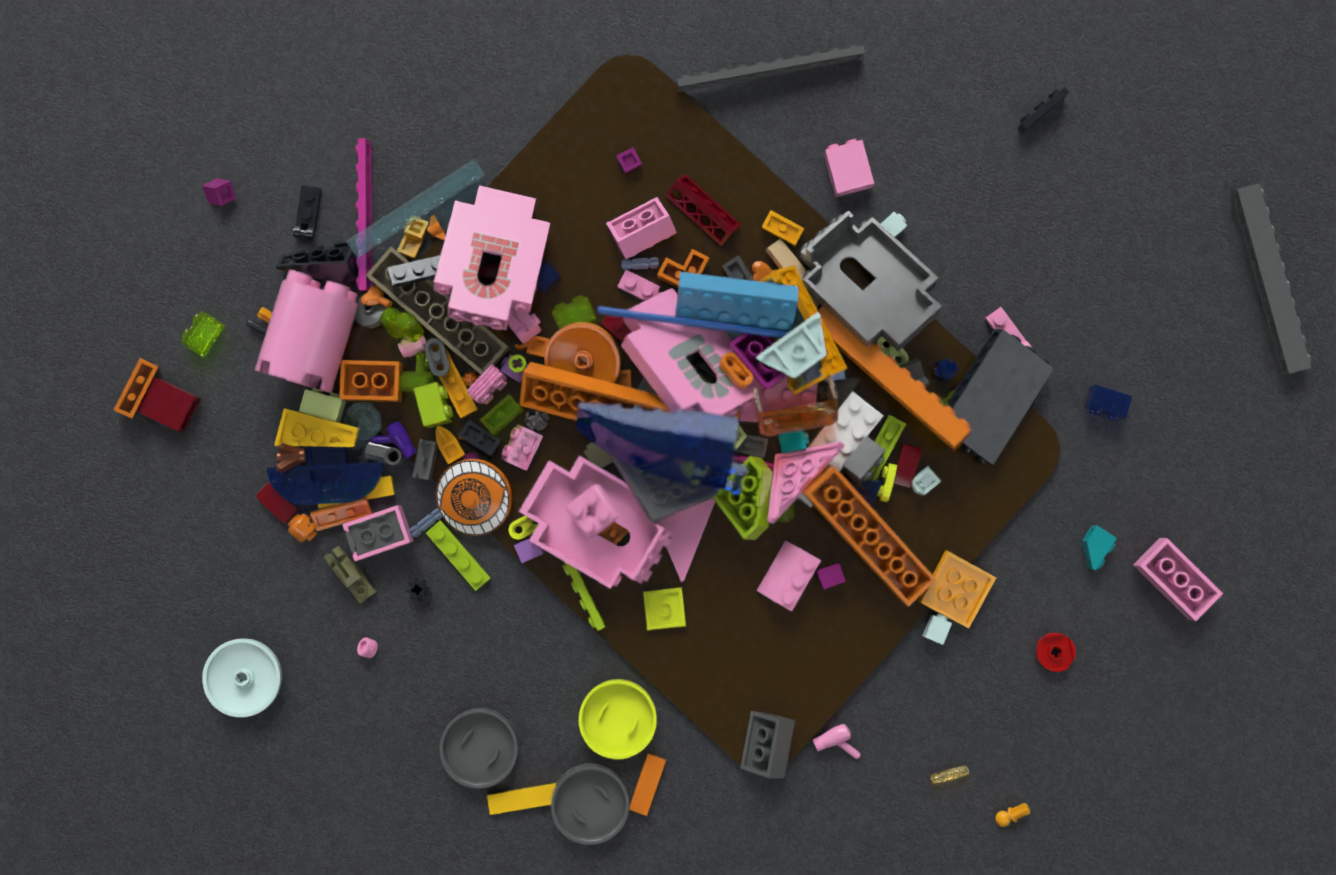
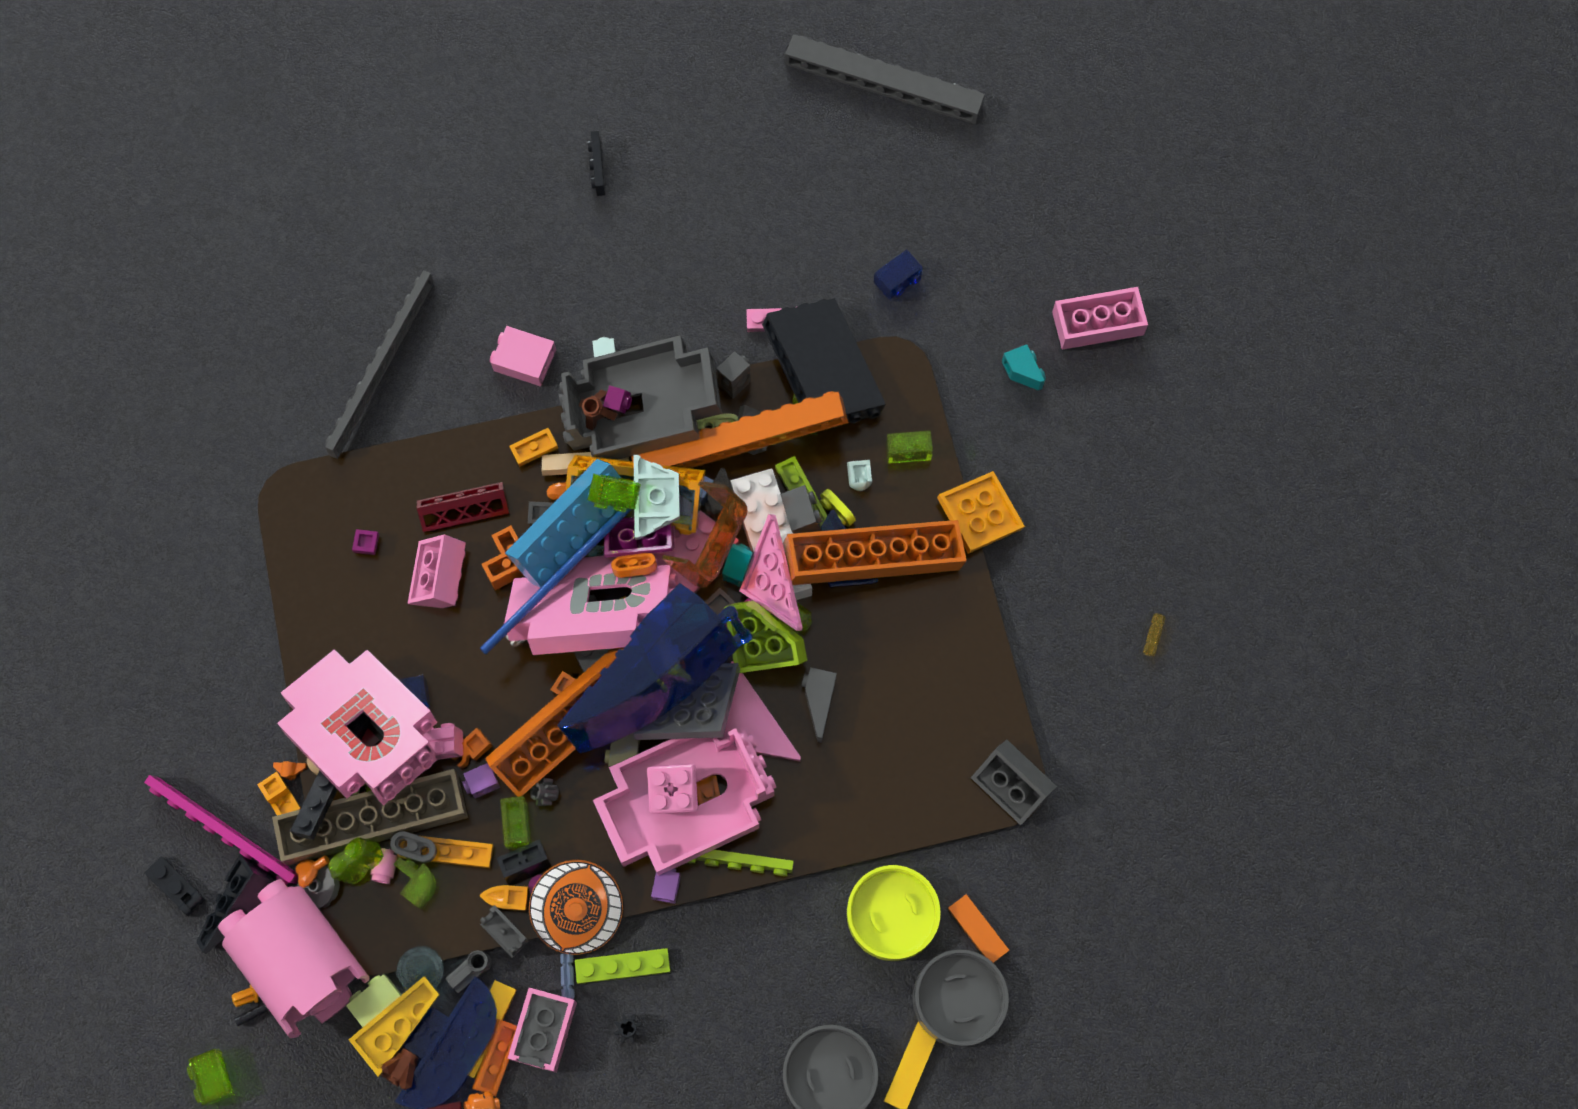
camera: 60 degrees left, 15 degrees down
(219, 192) = (85, 961): magenta panel -> none
(350, 575) = (565, 1090): olive plate -> none
(370, 381) = (387, 930): orange brick -> none
(398, 436) = (461, 942): dark purple piece -> none
(415, 208) = (254, 774): clear light blue plate -> none
(433, 405) = (456, 882): lime brick -> none
(470, 377) = (458, 829): orange plate -> none
(487, 384) = (476, 818): bright pink brick -> none
(518, 369) = (484, 773): lime bush -> none
(521, 447) = (560, 826): bright pink bracket -> none
(527, 526) = (640, 873): neon yellow plate -> none
(577, 311) = (470, 690): clear neon green brick -> none
(584, 351) = (511, 699): orange dish -> none
(615, 327) = (513, 655): dark red torso -> none
(638, 286) = (488, 613): bright pink plate -> none
(640, 263) = (469, 597): sand blue axle -> none
(664, 608) = (815, 794): neon yellow tile -> none
(737, 563) = (818, 694): none -> dark grey slope
(777, 319) = (613, 492): none -> clear neon green brick
(788, 575) = (863, 654): bright pink slope -> none
(830, 576) = (889, 616): magenta panel -> none
(836, 736) = (1048, 715): bright pink piece -> none
(839, 255) = (594, 409): none -> copper rock
(856, 266) = (617, 399): none -> magenta plate
(907, 465) = (833, 479): dark red slope -> none
(937, 628) = (1006, 554): light aqua brick -> none
(939, 336) = (734, 374): none -> dark grey brick
(945, 369) = (769, 389): clear blue gear -> none
(971, 503) = (909, 446): none -> clear neon green brick
(1004, 818) = (1227, 612): light orange axle -> none
(1049, 661) = (1087, 471): red plate -> none

